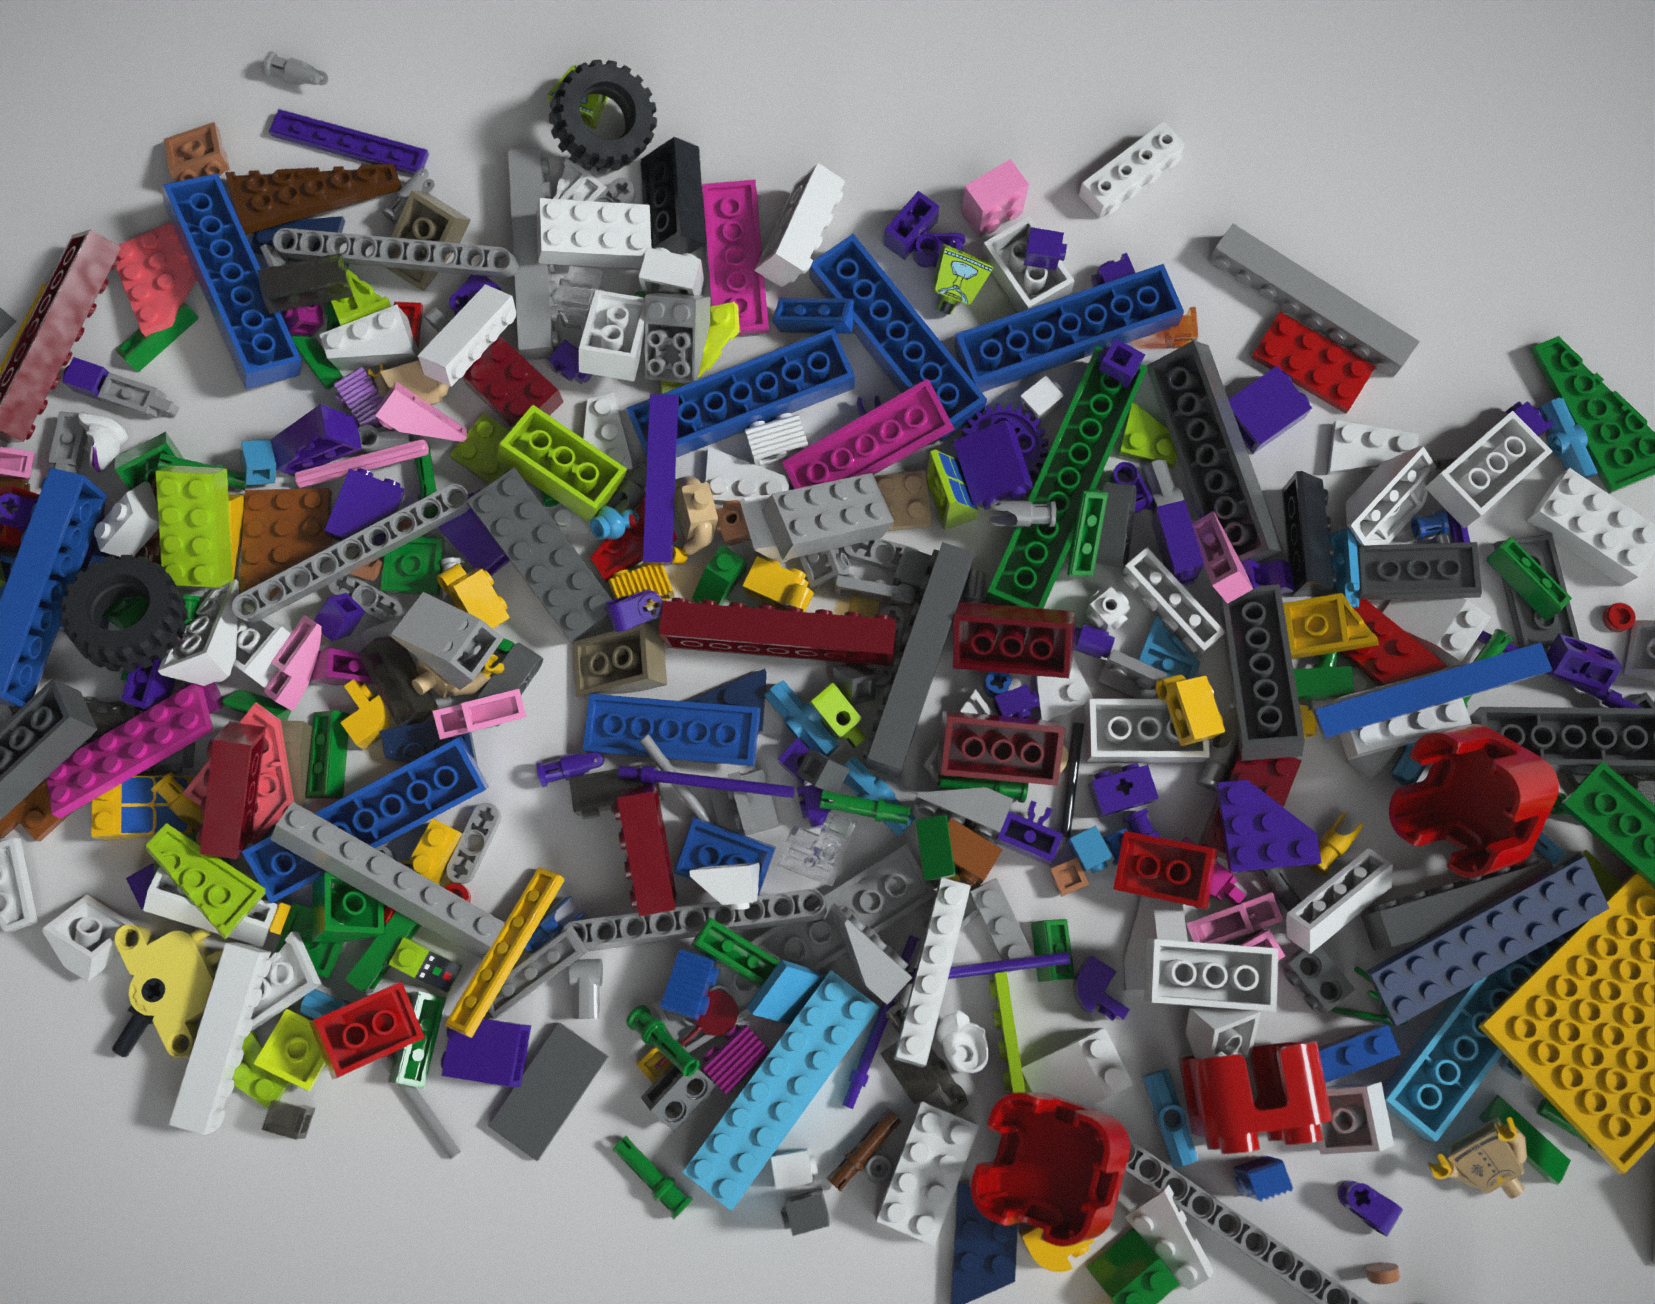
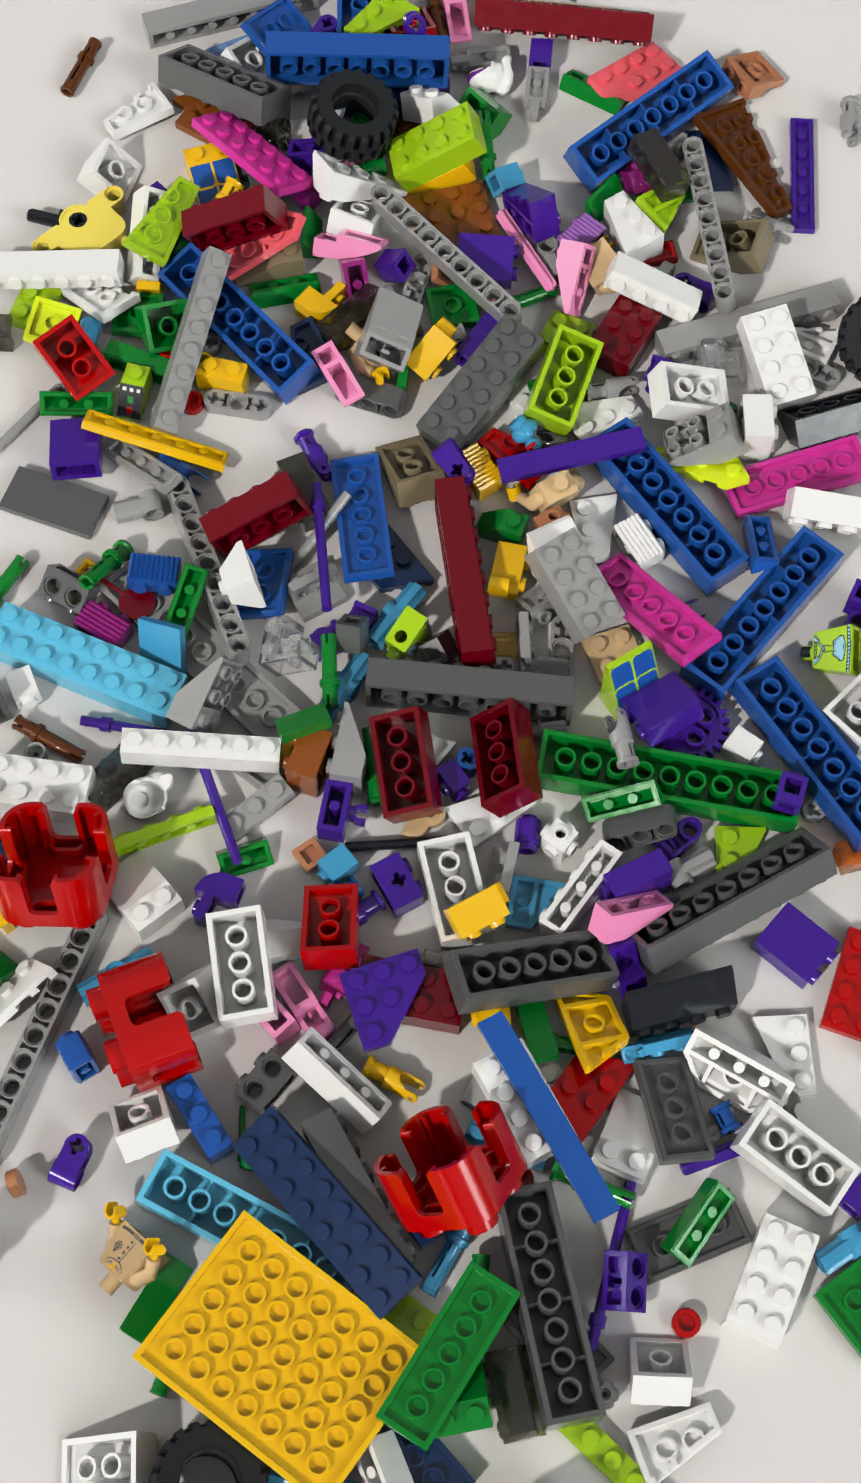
camera: 75 degrees right, 10 degrees down
(573, 410) = (612, 388): none -> light grey piece

